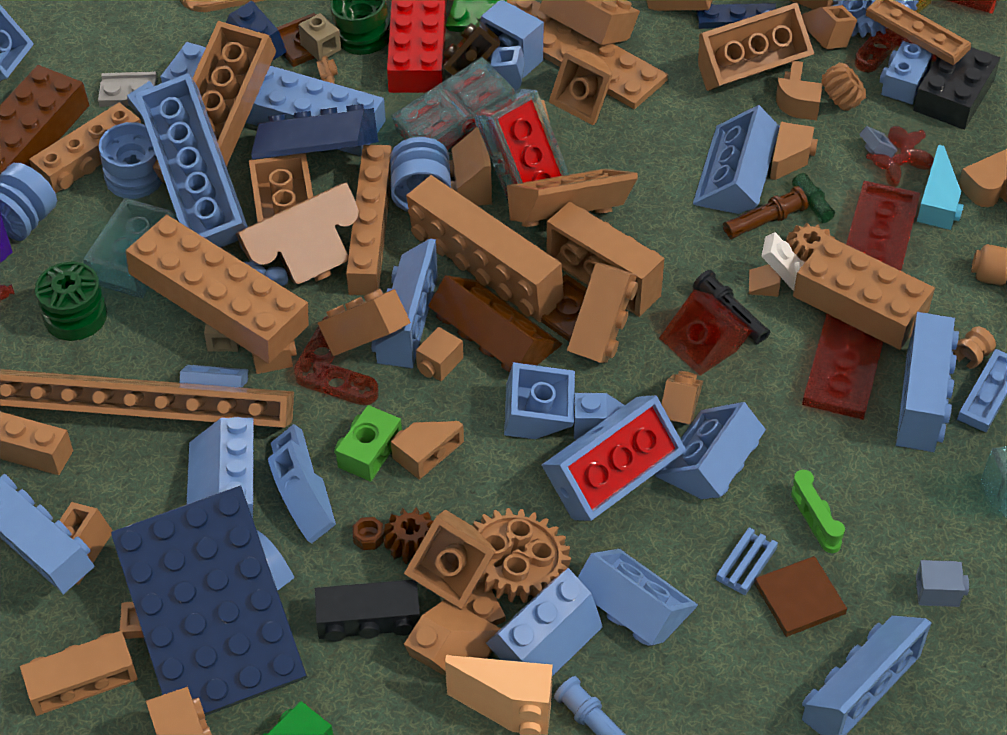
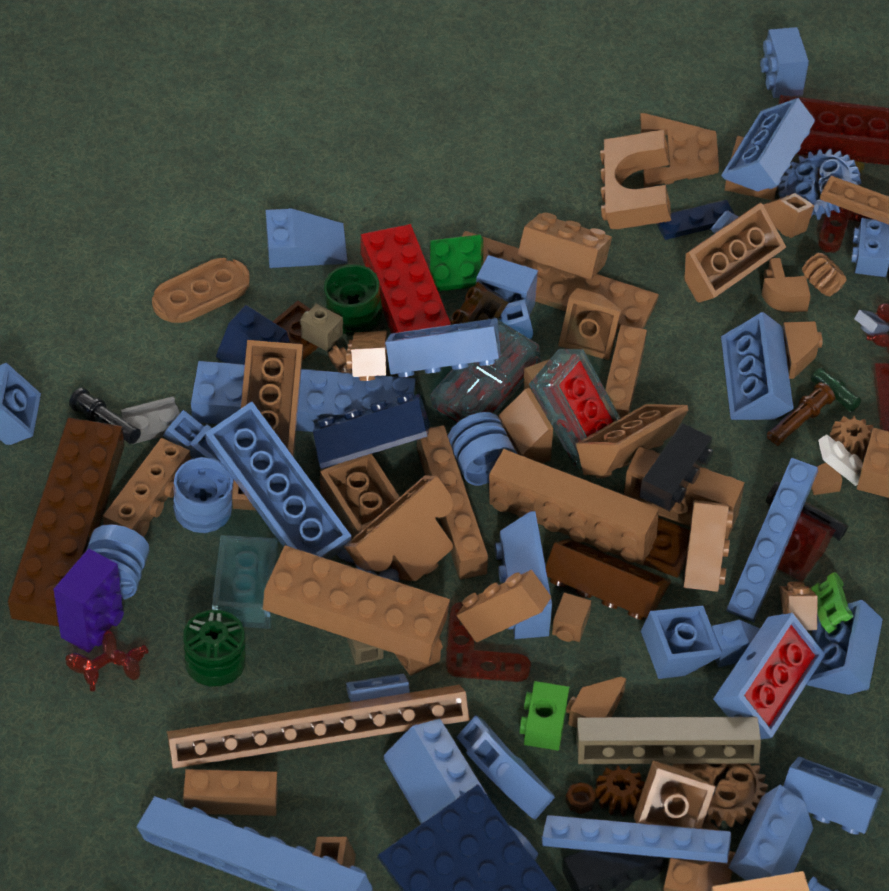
camera: 20 degrees left, 0 degrees up
(78, 68) = (96, 410): none -> black pin
(343, 65) = (367, 355): none -> brick
(397, 587) = (637, 839): none -> medium blue plate
(416, 70) = (443, 347): none -> medium blue slope
(476, 495) = (668, 740): none -> dark tan brick
(594, 226) = (676, 467): none -> black brick
(600, 134) = (625, 368): none -> medium nougat brick
(676, 322) = (772, 539): none -> medium blue plate
(713, 399) = (832, 603): none -> bright green plate

